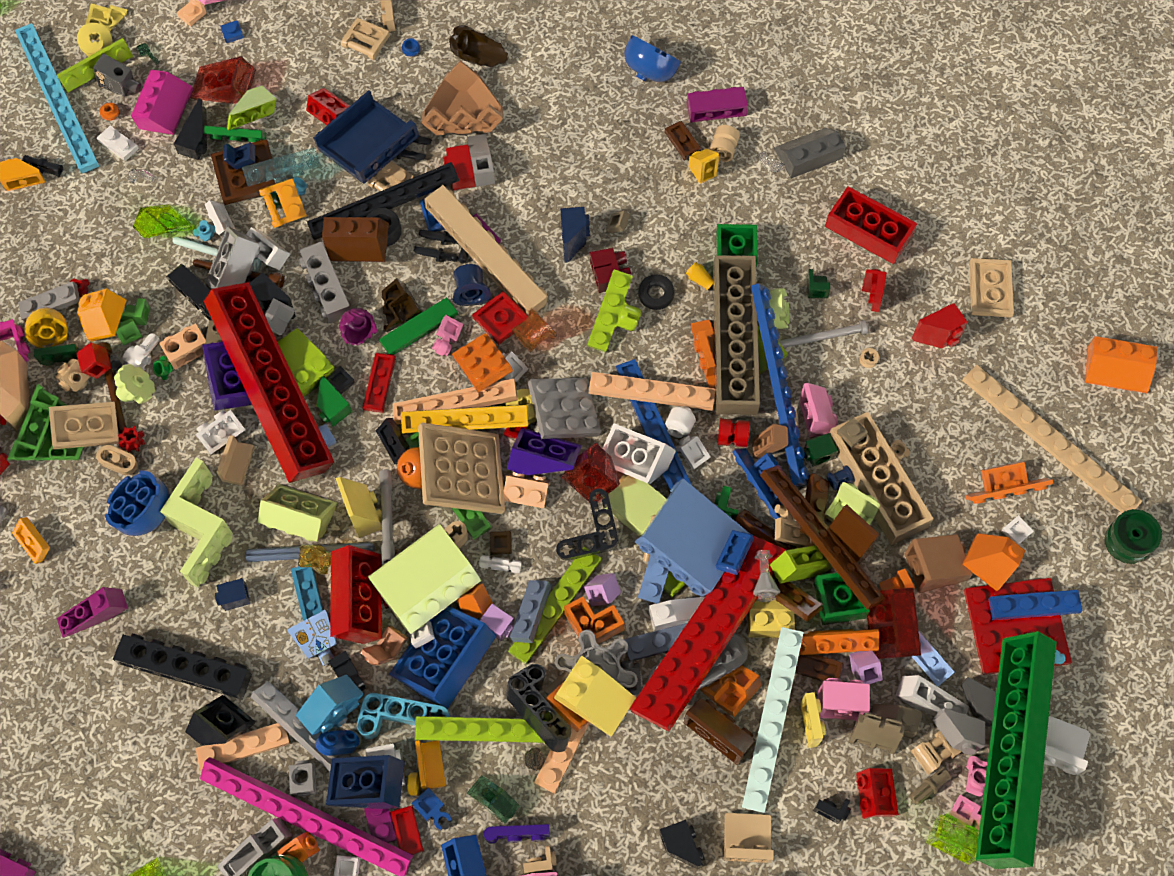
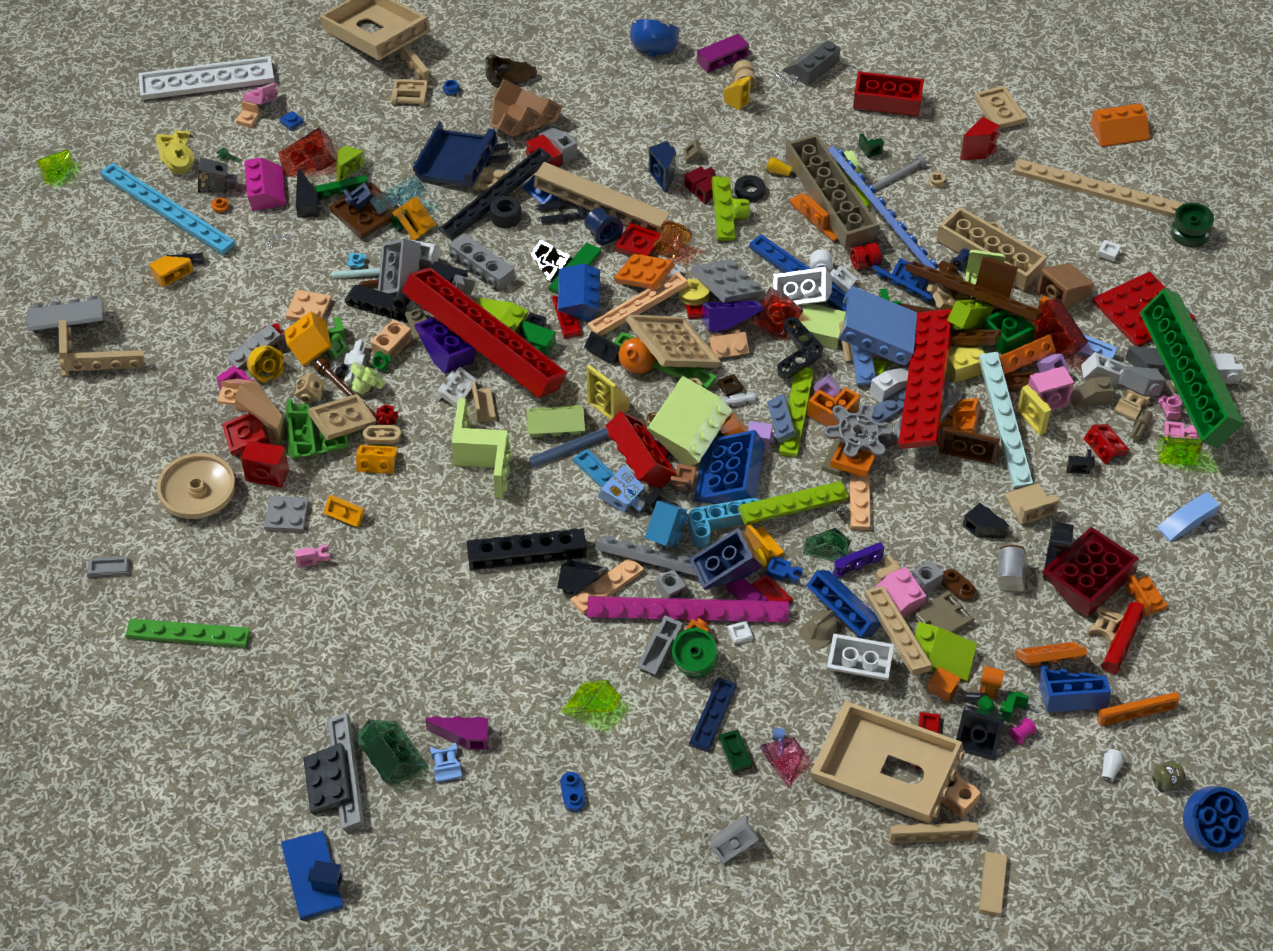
camera: 25 degrees left, 15 degrees down
(50, 355) = (284, 380): dark green plate -> none
(83, 70) = (185, 177): lime plate -> none
(93, 360) = (324, 369): red brick -> none
(94, 486) = (376, 459): none -> light orange bracket
(95, 609) = (426, 540): magenta slope -> none
(117, 143) = (241, 224): white plate -> none
(129, 271) = (307, 301): none -> light nougat plate
(137, 504) = (425, 450): blue cylinder -> none
(160, 221) = (314, 265): clear neon green slope -> none
(219, 216) = (360, 245): white plate -> none
(232, 594) = (537, 488): dark blue brick -> none
(314, 557) = (592, 439): clear yellow bracket -> none
(325, 105) = (405, 147): red bracket -> none
(337, 742) = (684, 551): blue plate -> none
(355, 239) = (492, 221): reddish brown slope -> none
(357, 326) = (527, 280): magenta hair -> none
(388, 546) = (617, 379): light grey piece -> none
(401, 360) = (579, 291): none -> blue slope
(422, 635) = (706, 463): white tile -> none
(449, 331) = (604, 263): bright pink plate -> none
(467, 417) = (660, 307): yellow plate -> none
(524, 691) = (827, 473): black beam -> none
(595, 696) = (867, 441): light yellow slope -> none
(652, 391) = (787, 248): light nougat plate -> none
(682, 140) = (709, 84): reddish brown plate -> none
(734, 552) = (916, 322): blue plate -> none
(736, 240) = (791, 131): green brick -> none
(766, 587) = (954, 334): piece -> none
(770, 440) = (904, 243): medium nougat slope -> none
(817, 410) = (919, 222): bright pink slope -> none
(820, 450) = (937, 246): dark green brick -> none
(852, 432) = (956, 221): dark tan plate -> none
(874, 284) = (916, 130): red bracket -> none
(877, 732) = (1085, 400): dark tan plate -> none
(993, 558) = (1104, 268): orange slope -> none
(1005, 480) = (1082, 220): orange bracket -> none
(1035, 605) = (1148, 288): blue plate -> none

